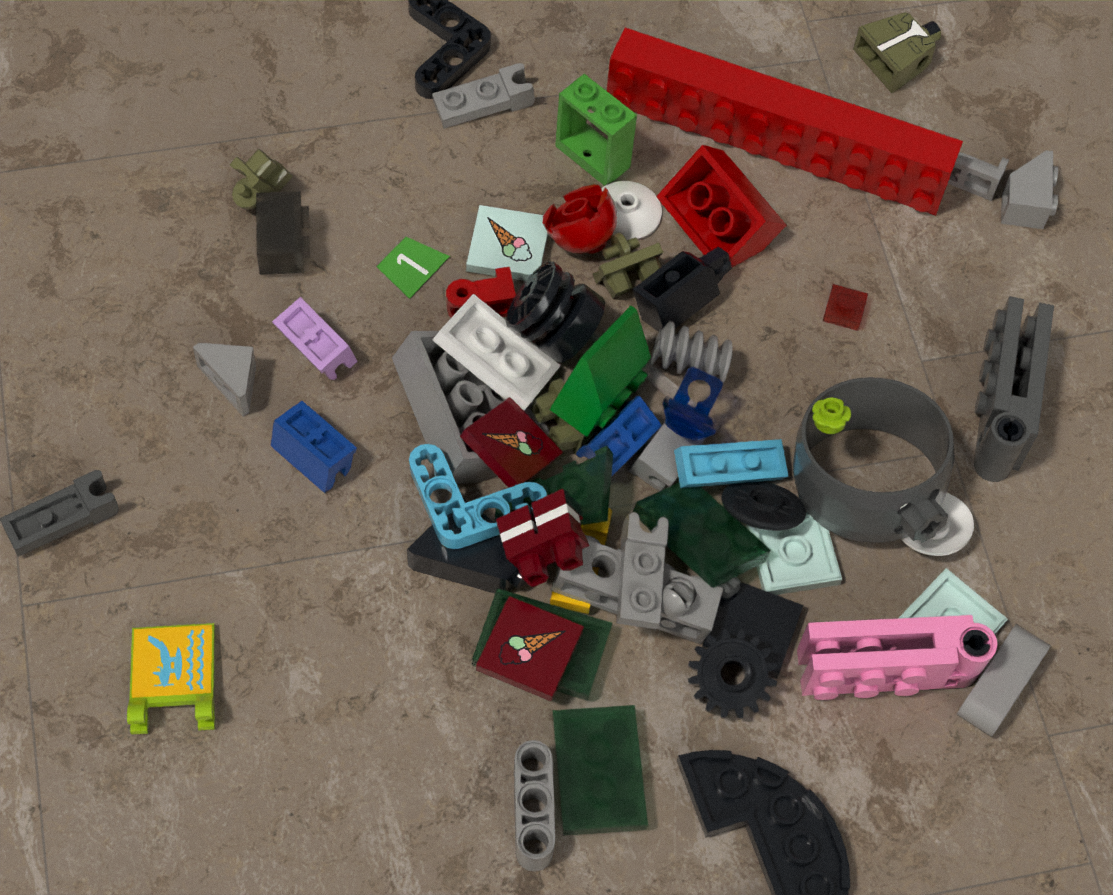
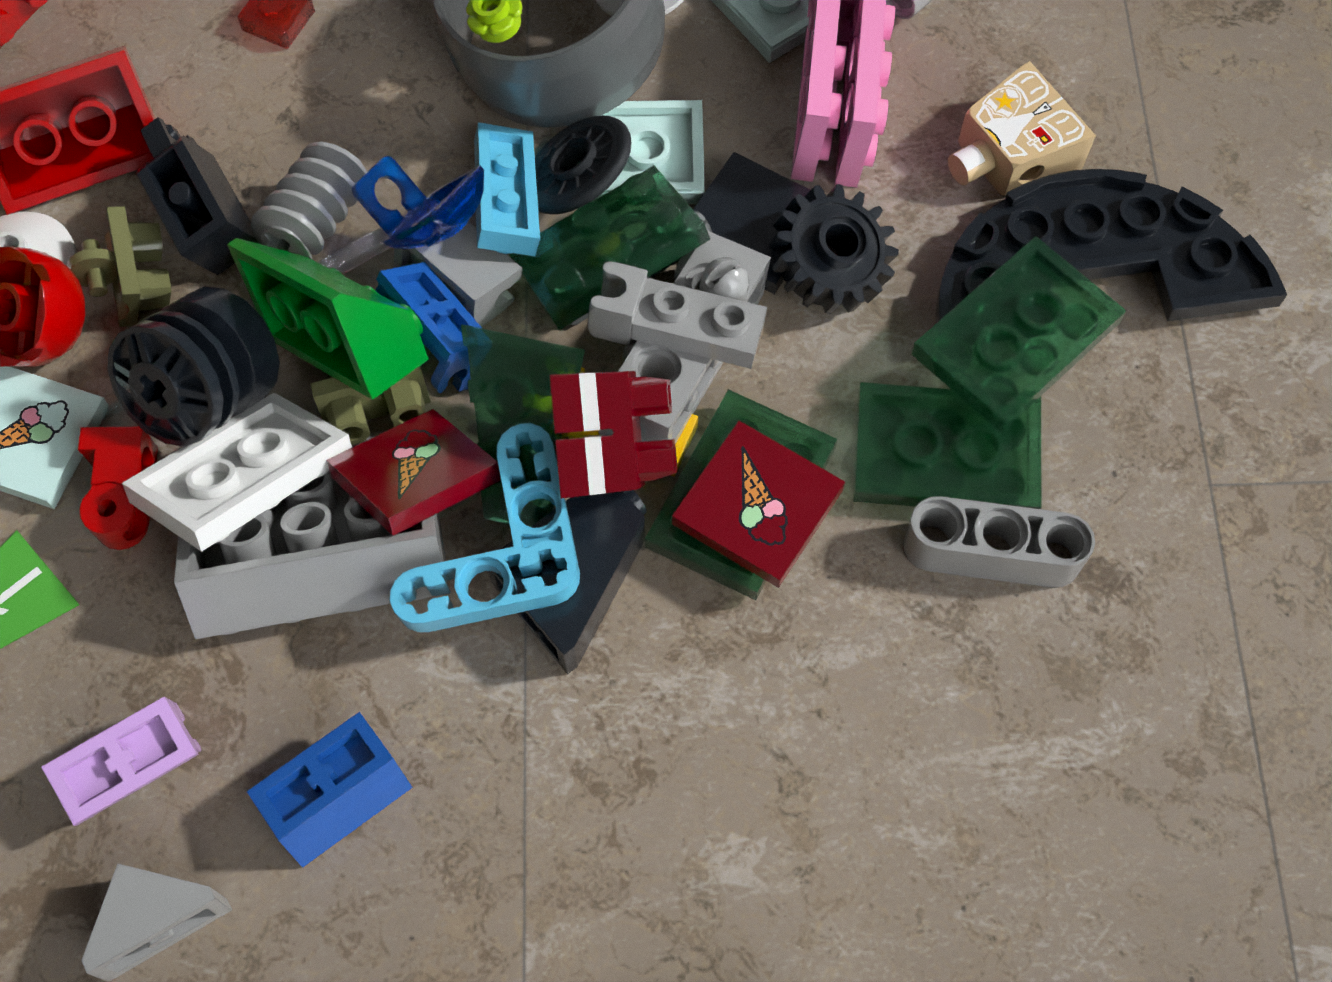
camera: 75 degrees left, 5 degrees up
(687, 798) = (1018, 333): none -> clear green plate
(863, 794) = (1020, 134): none -> tan torso

